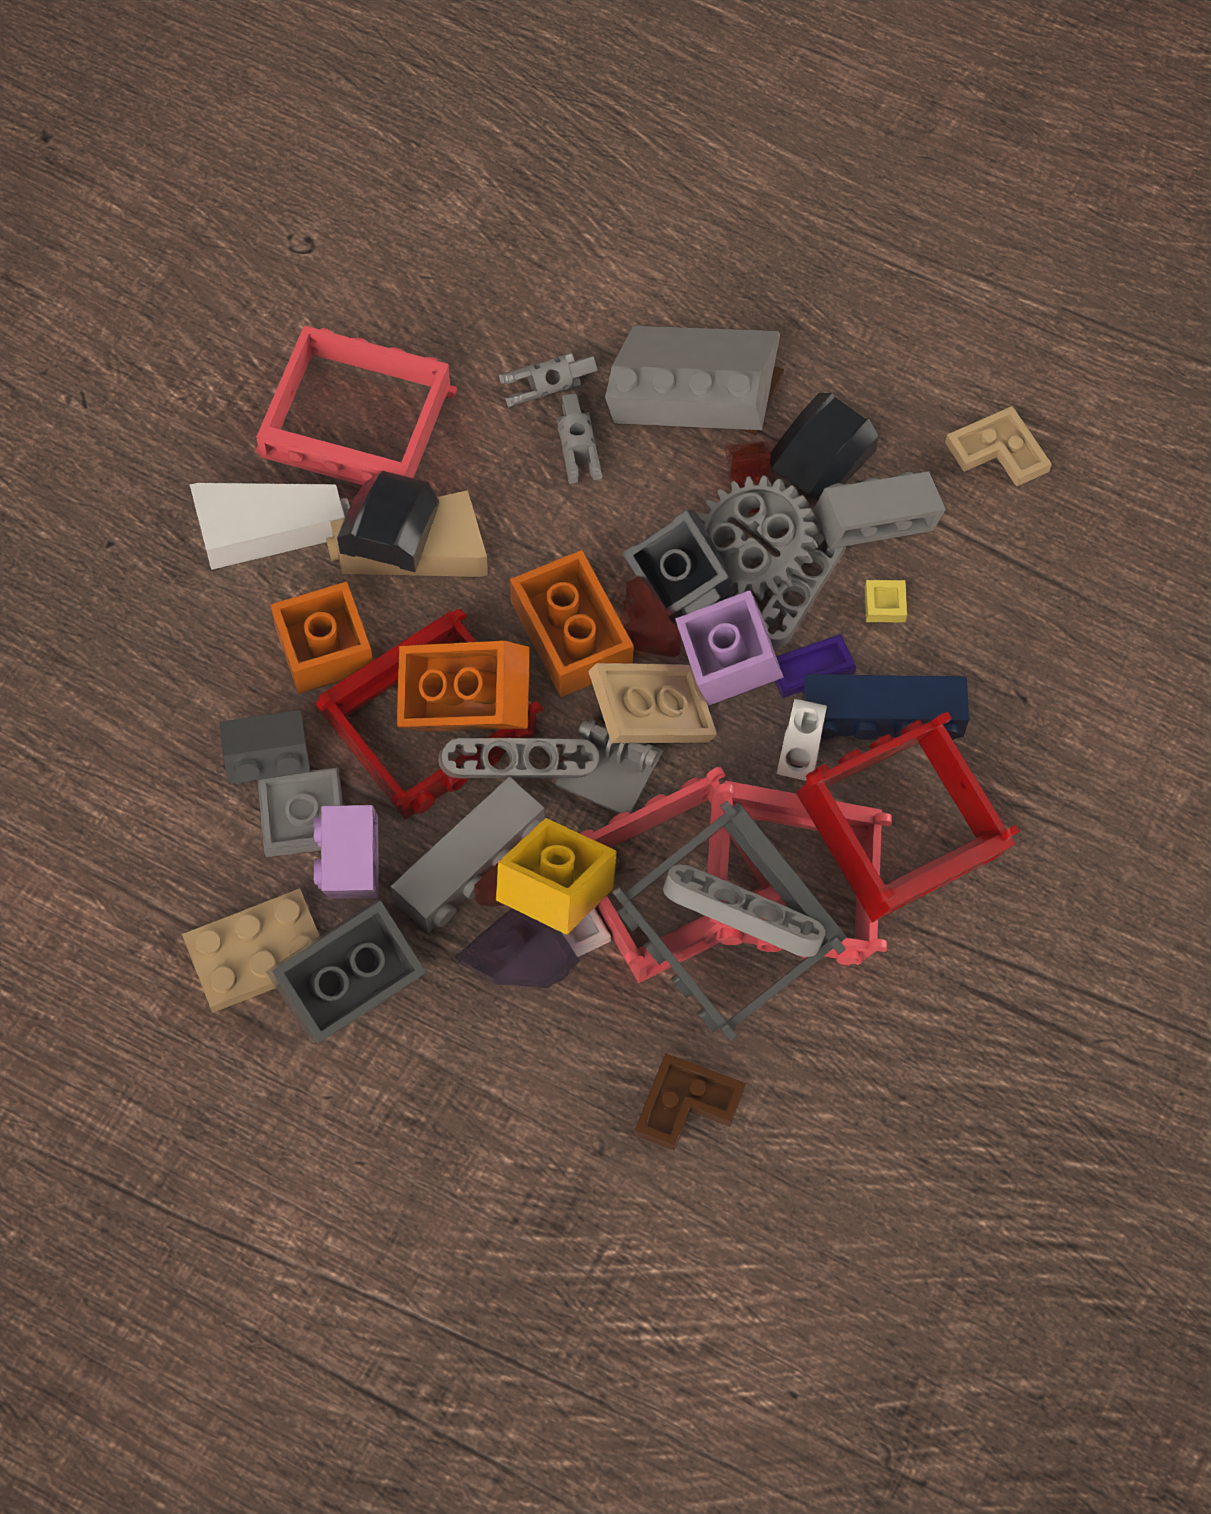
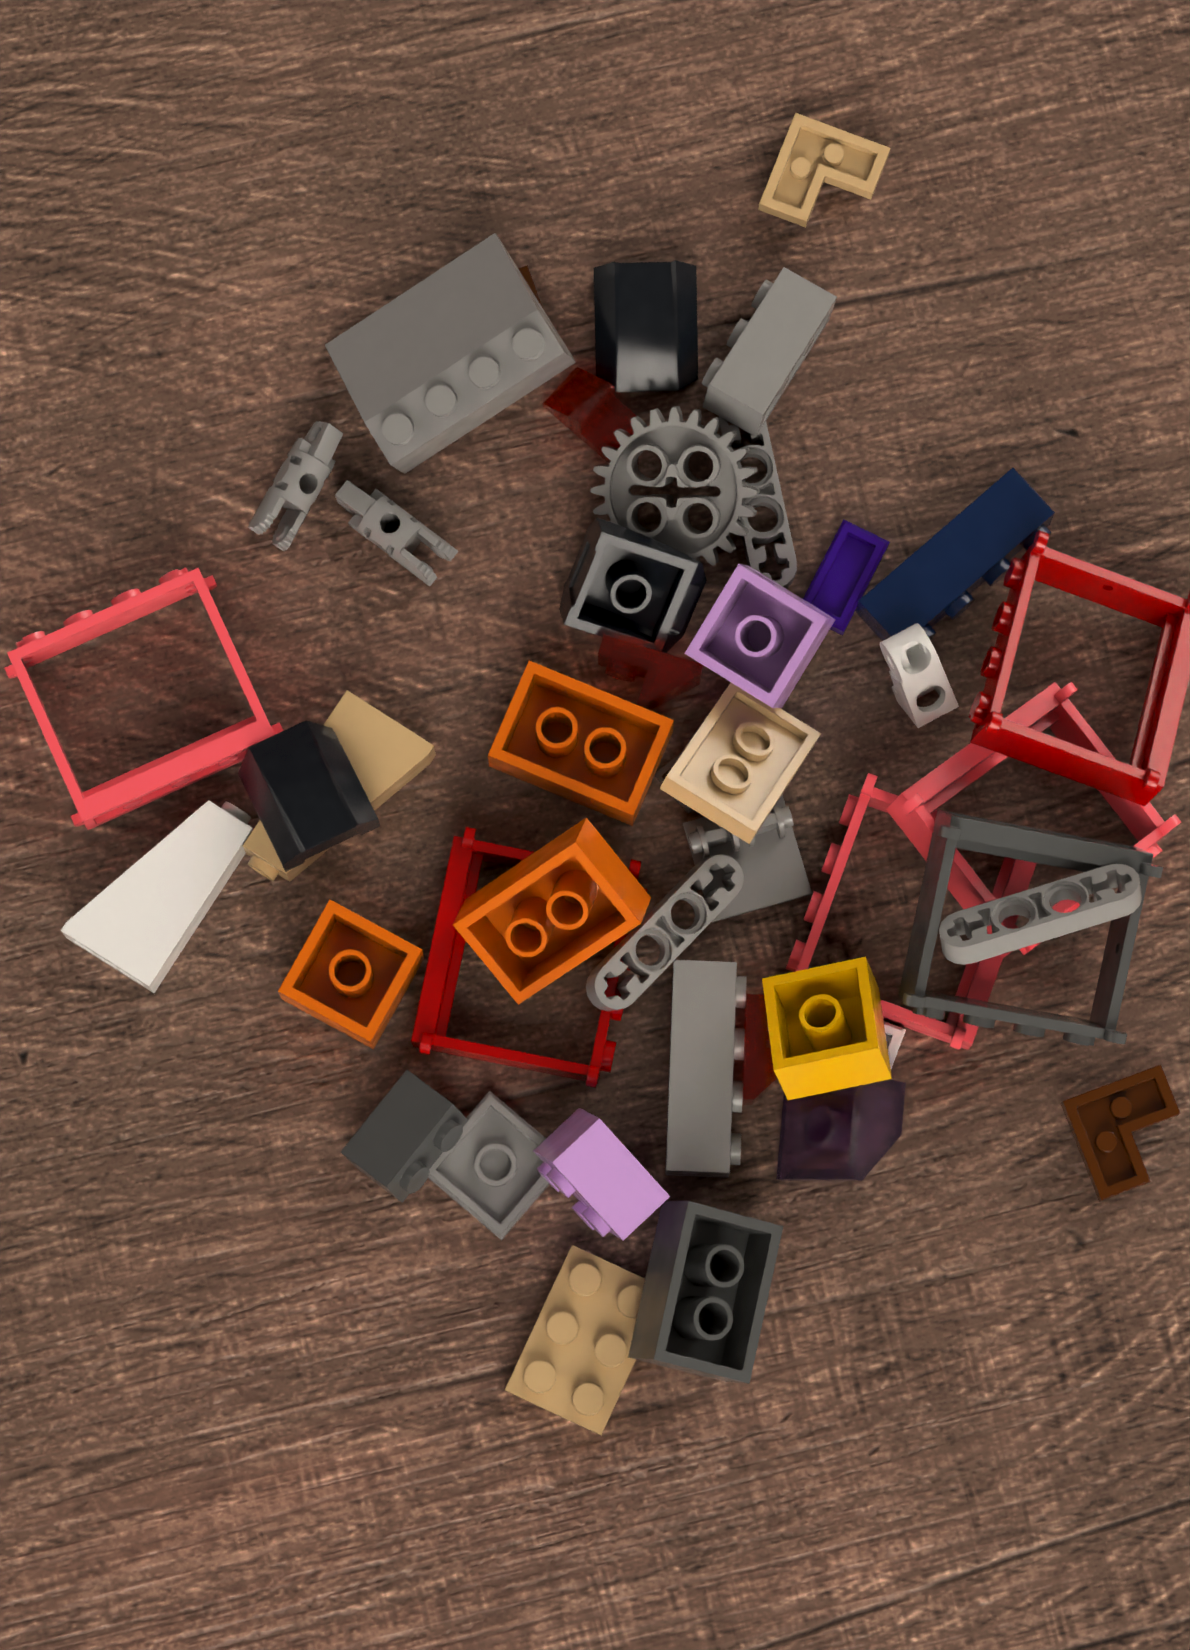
camera: 40 degrees left, 15 degrees up
(885, 601) = (856, 445): light yellow plate -> none

